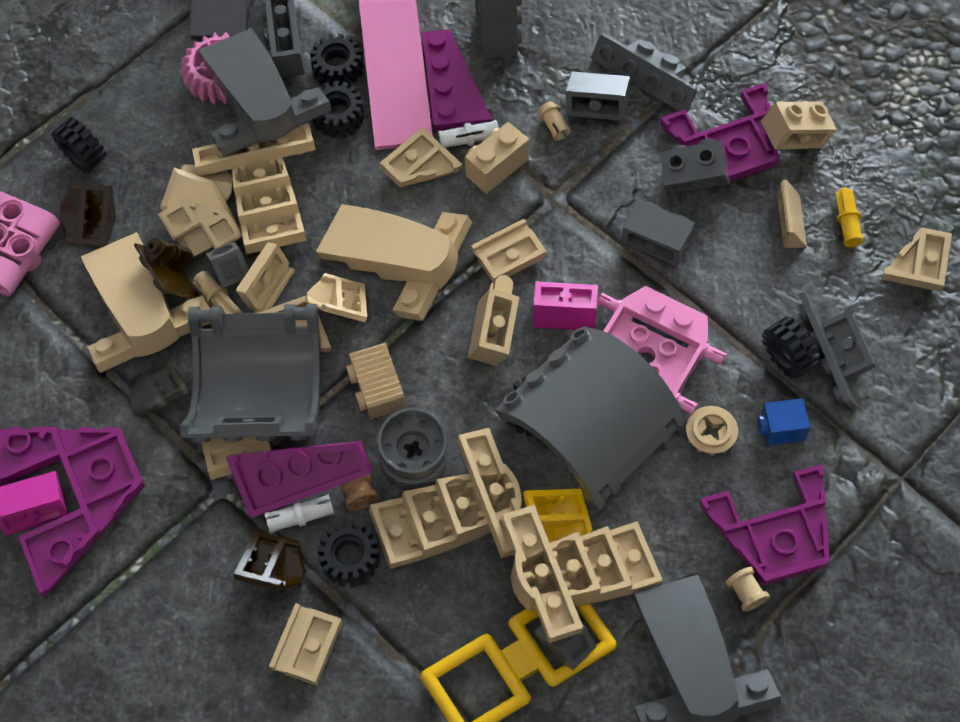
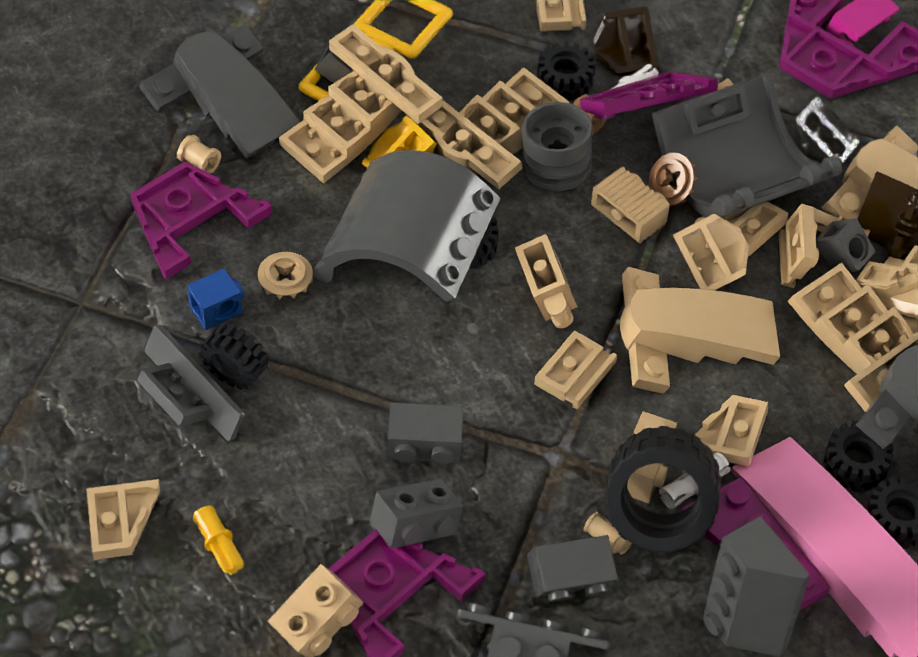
camera: 150 degrees right, 10 degrees down
(334, 384) = (662, 175): none -> medium nougat gear
(511, 96) = (654, 530): none -> black tyre
(564, 305) = (486, 327): dark pink hinge -> none
(671, 360) = (359, 345): bright pink piece -> none
(791, 216) = (284, 517): tan slope -> none

